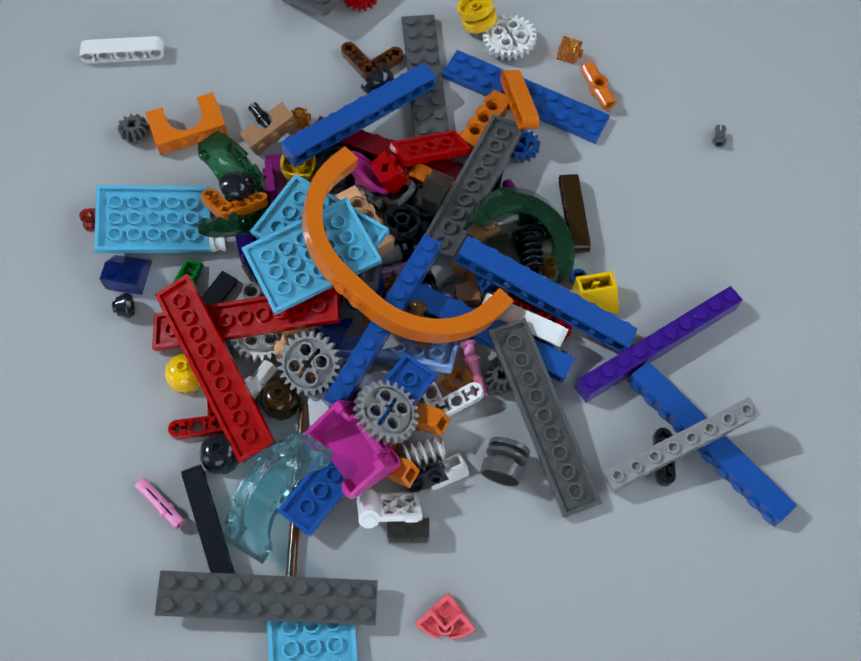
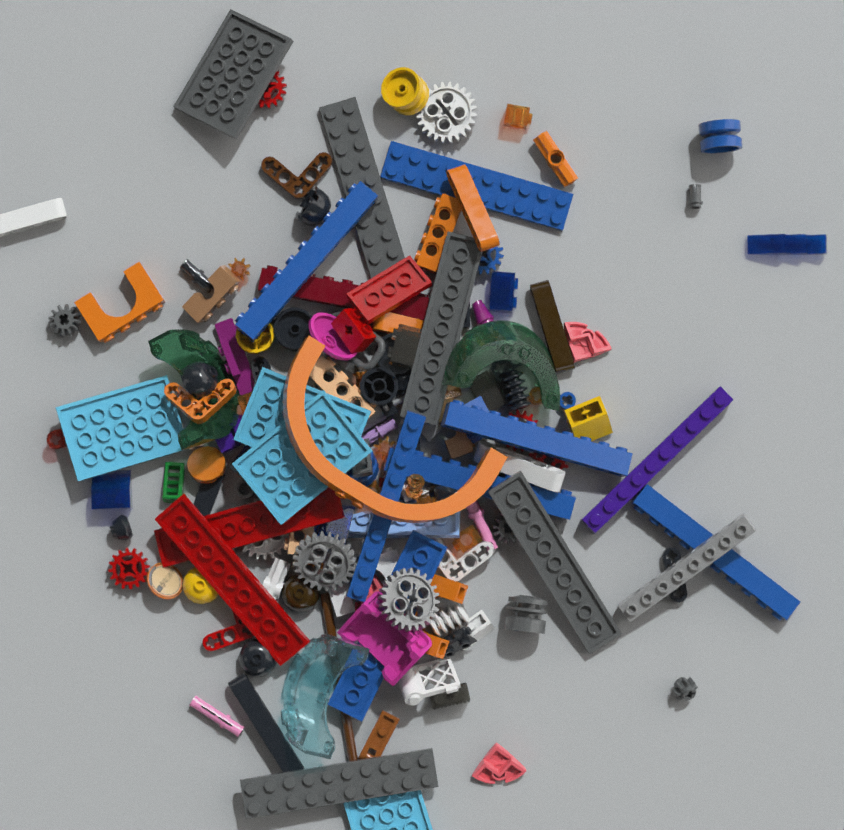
camera: 15 degrees left, 20 degrees up
(111, 350) = (134, 561): none -> red gear
(148, 361) = (165, 581): none -> piece
(222, 265) = (206, 464): none -> orange tile
(326, 556) = (380, 735): none -> dark orange plate
(533, 174) = (502, 292): none -> clear blue brick
(603, 233) = (584, 342): none -> coral brick
(662, 574) = (685, 688): none -> dark grey gear
(749, 89) = (720, 136): none -> blue wheel
(802, 188) = (787, 244): none -> clear blue slope

